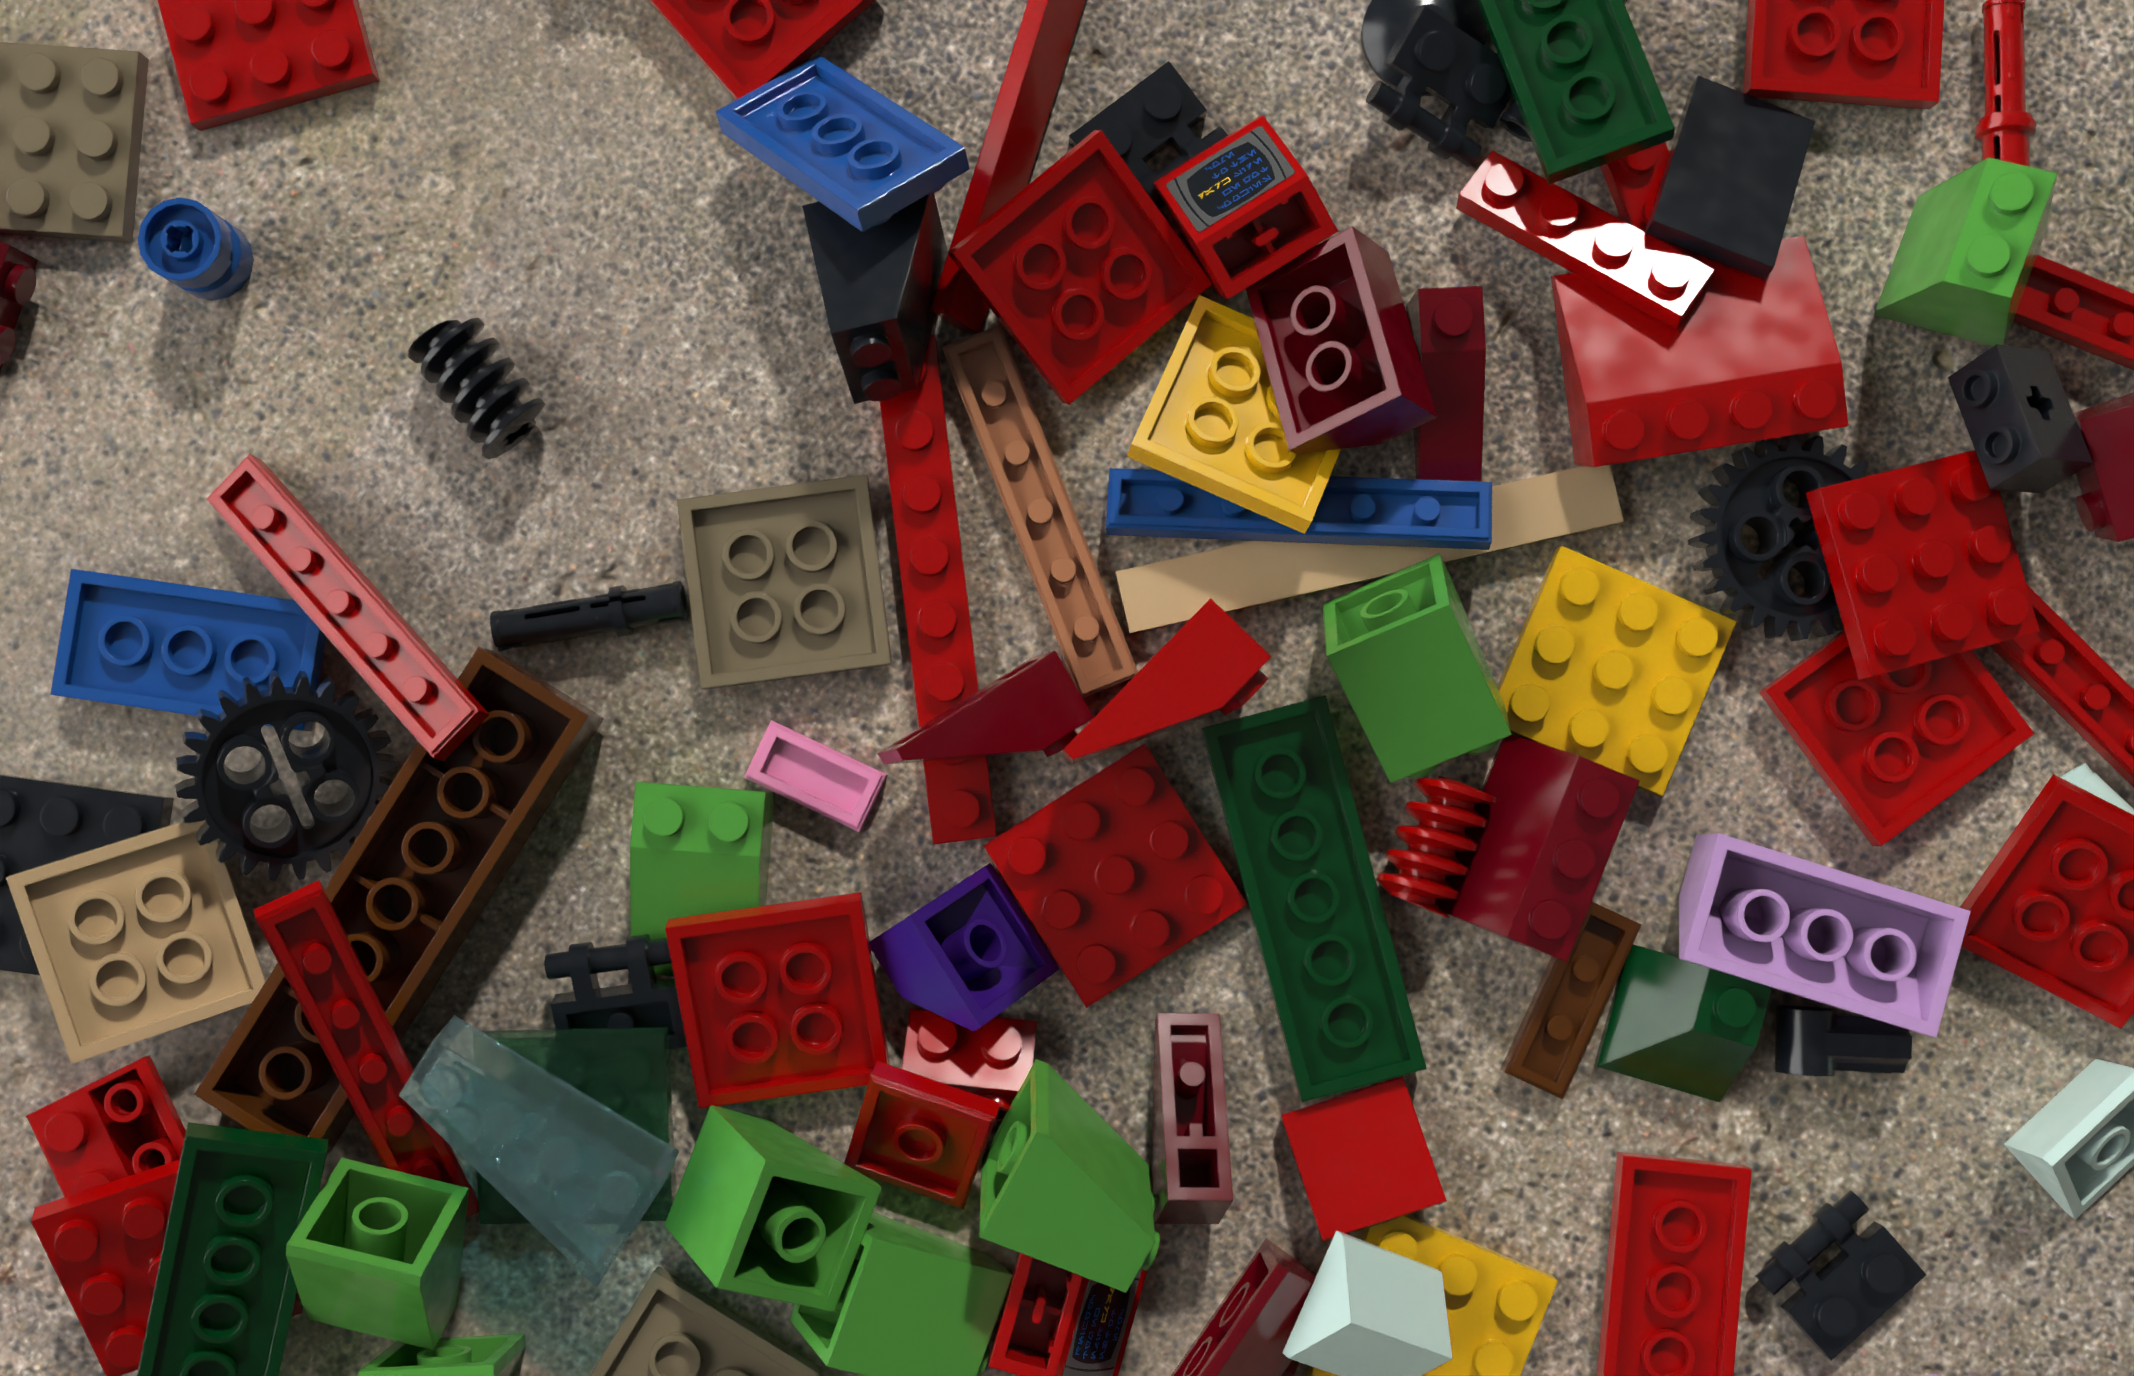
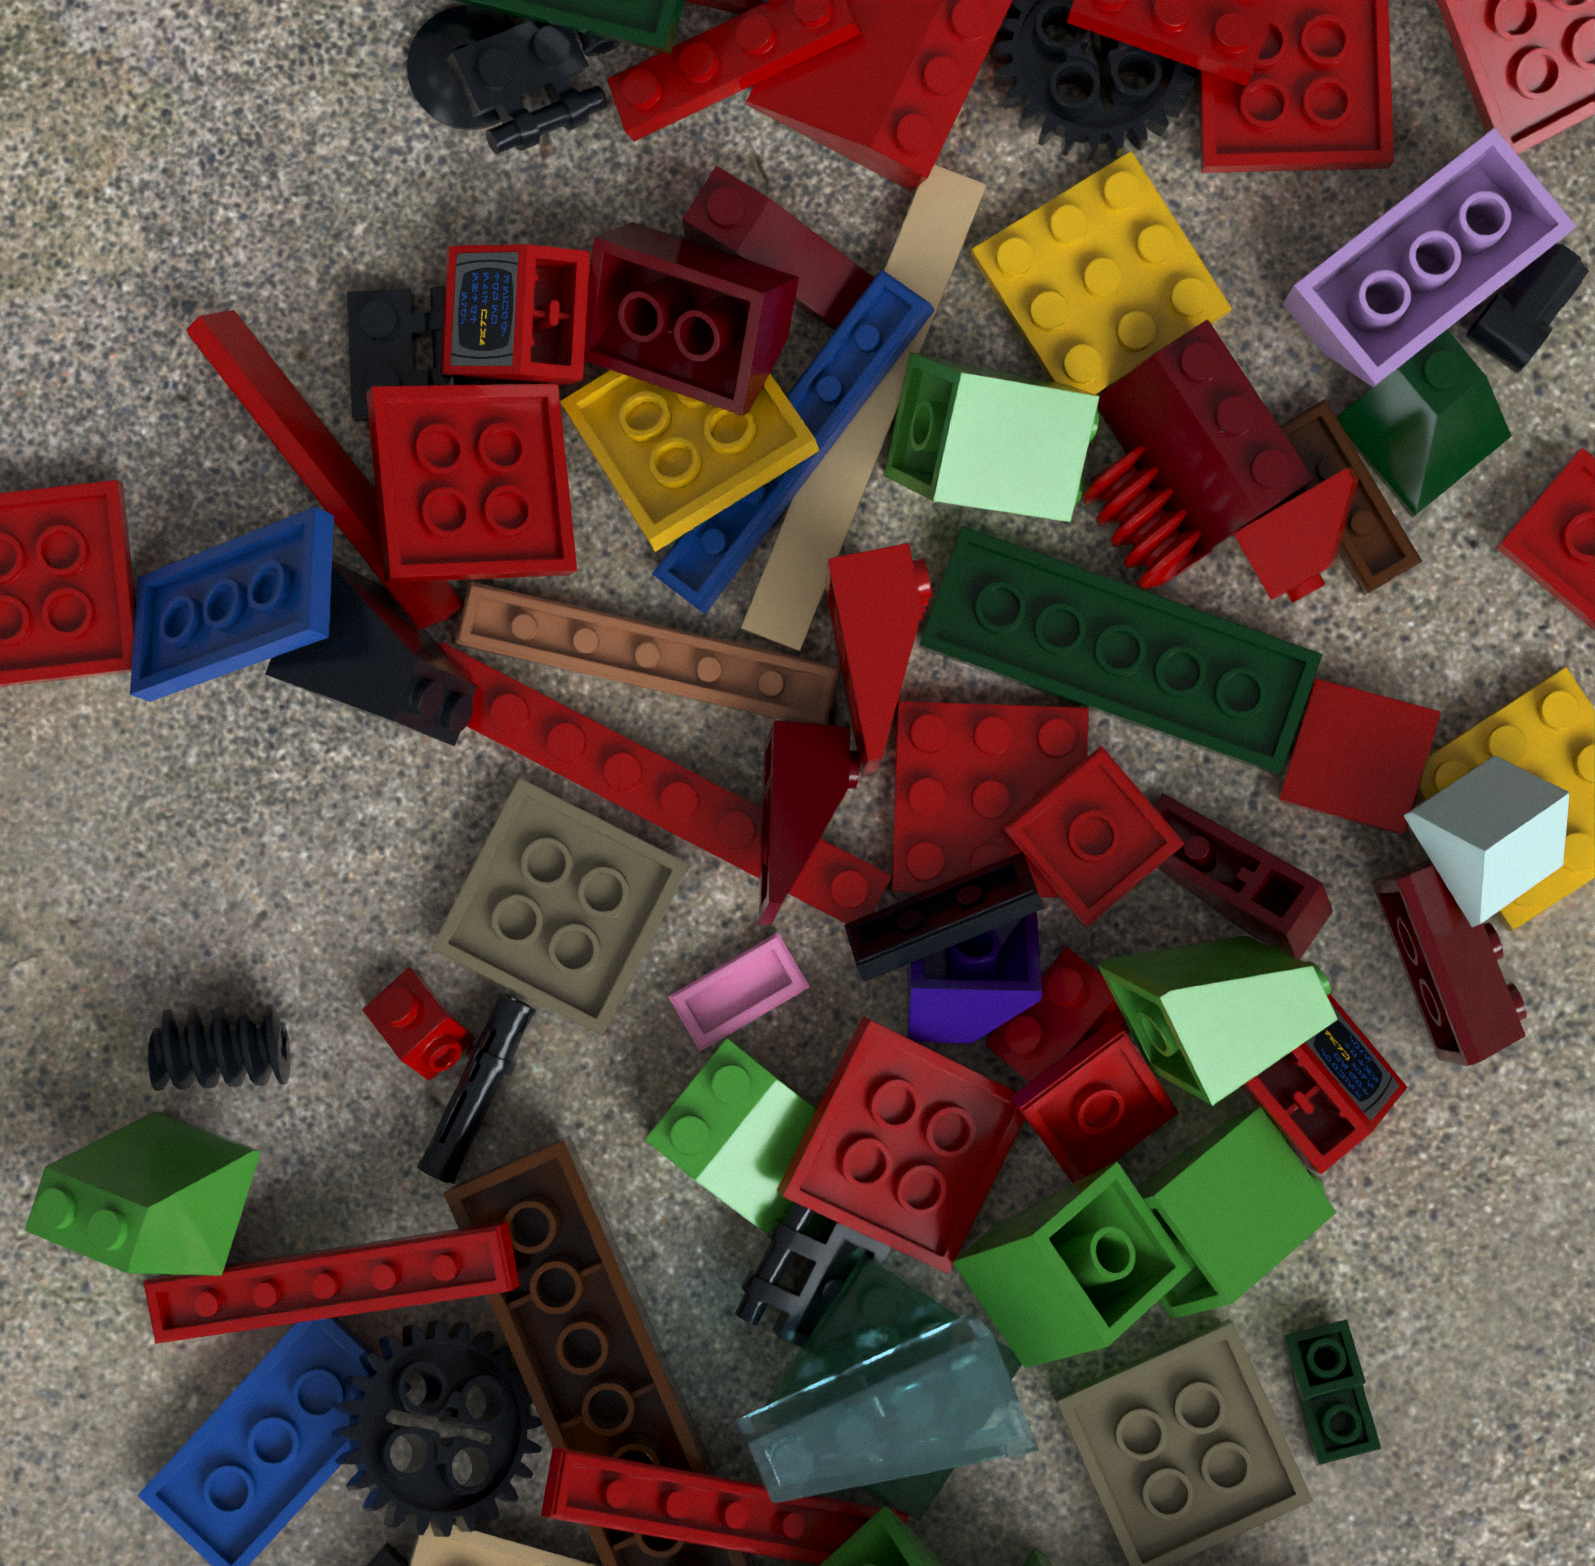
camera: 55 degrees left, 0 degrees up
(309, 408) = (148, 1198): none -> bright green slope
(608, 533) = (418, 1025): none -> red bracket
(989, 902) = (943, 916): none -> black tile
(1142, 981) = (1093, 836): none -> red tile
(1510, 983) = (1300, 537): none -> red slope

